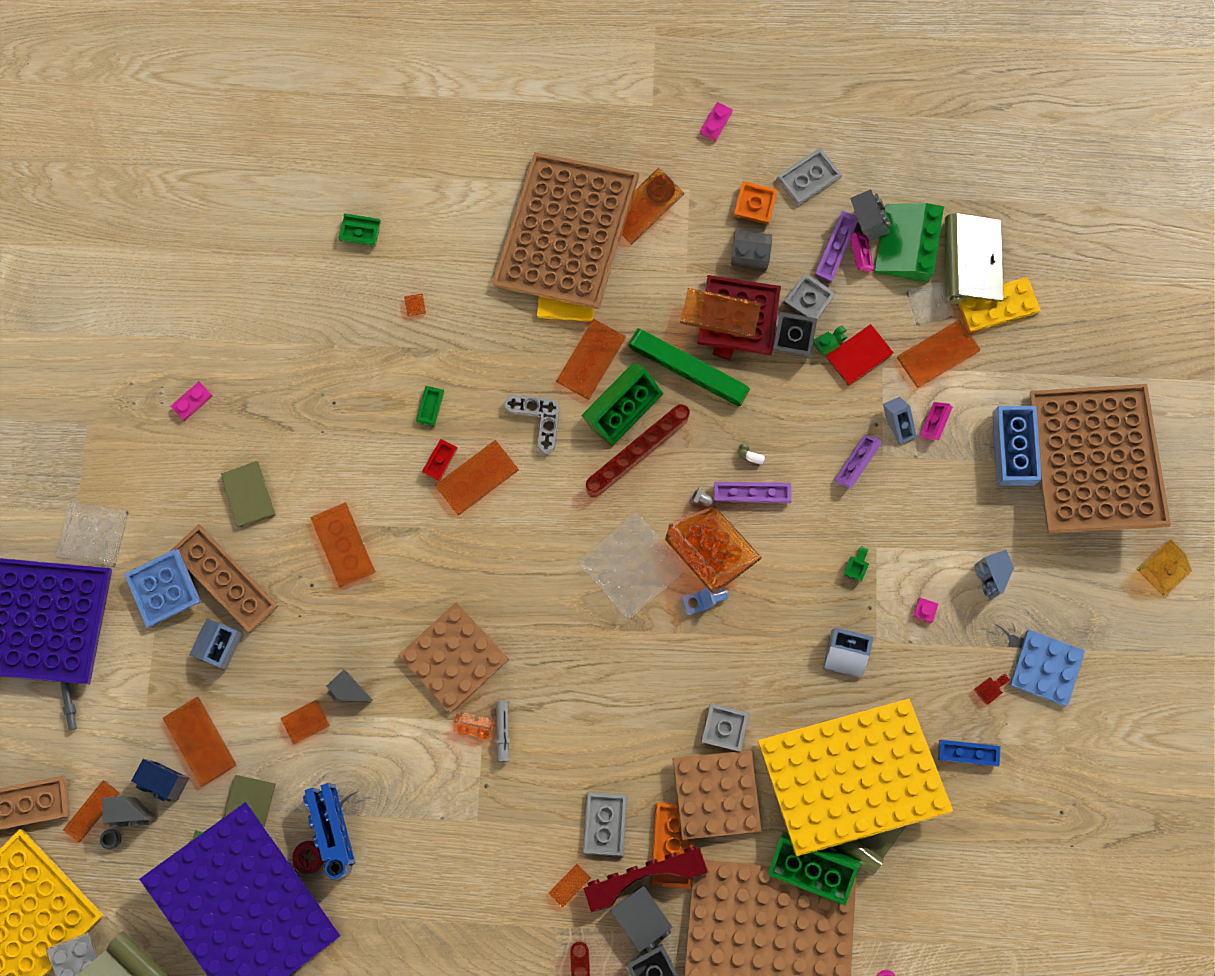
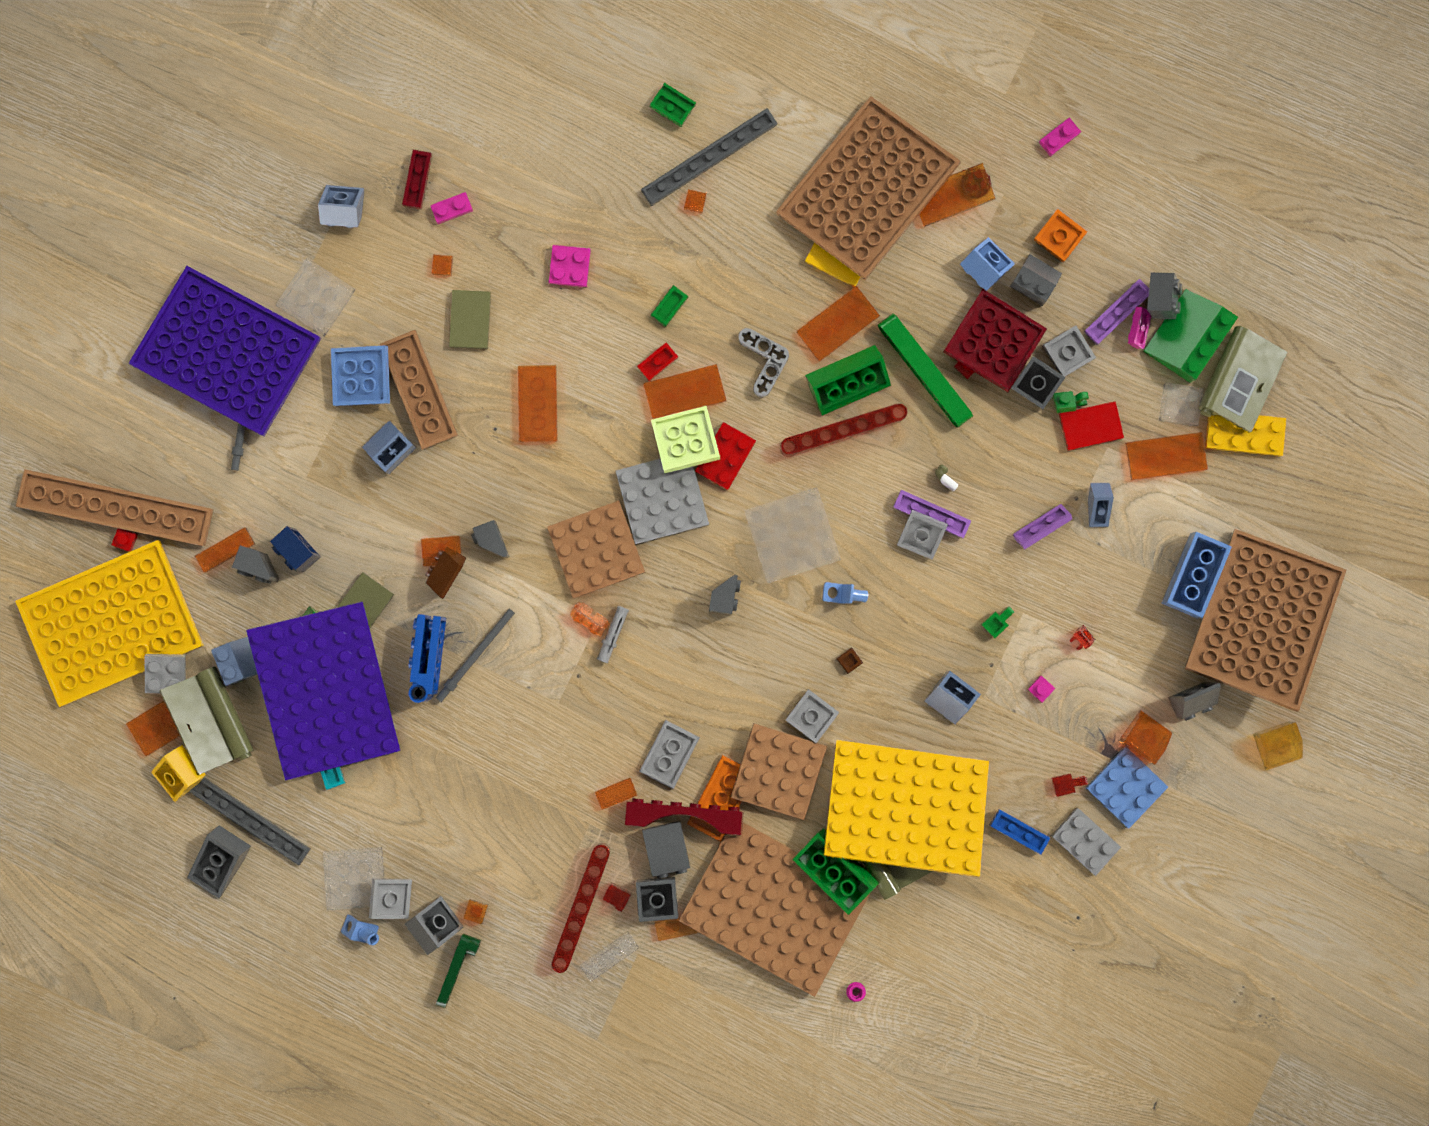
camera: 20 degrees right, 10 degrees up
(86, 441) = (341, 206): none -> sand blue slope
(110, 839) = (232, 581): dark grey plate -> none
(141, 917) = (235, 661): none -> sand blue slope
(149, 388) = (417, 179): none -> dark red plate
(199, 741) = (342, 528): clear orange tile -> none
(202, 455) = (442, 265): none -> clear orange tile
(301, 863) = (390, 674): dark red gear -> none
(315, 739) = (445, 571): none -> reddish brown slope
(322, 408) = (569, 266): none -> dark pink plate
(365, 847) = (451, 684): none -> dark grey bar
(411, 262) = (709, 157): none -> dark grey tile
(495, 519) = (685, 439): none -> yellowish green plate
(496, 582) = (660, 501): none -> light grey plate
(539, 519) = (733, 451): none -> red plate
(592, 649) = (723, 596): none -> dark grey slope
(701, 253) = (987, 264): none -> medium blue slope
(701, 498) = (881, 498): light grey piece -> none
(711, 547) = (871, 550): clear orange slope -> none
(720, 313) = (977, 332): clear orange tile -> none
(737, 660) = (849, 660): none -> reddish brown tile
(752, 513) = (922, 534): none -> light grey plate
(809, 177) = (1124, 230): light grey tile -> none
(936, 421) = (1133, 519): dark pink plate -> none
(942, 545) = (1084, 637): none -> clear red tile
(994, 573) = (1119, 684): sand blue slope -> none
(1034, 735) = (1086, 841): none -> light grey plate
(1043, 614) = (1146, 738): none -> clear orange slope
(1071, 558) = (1195, 699): none -> dark grey slope

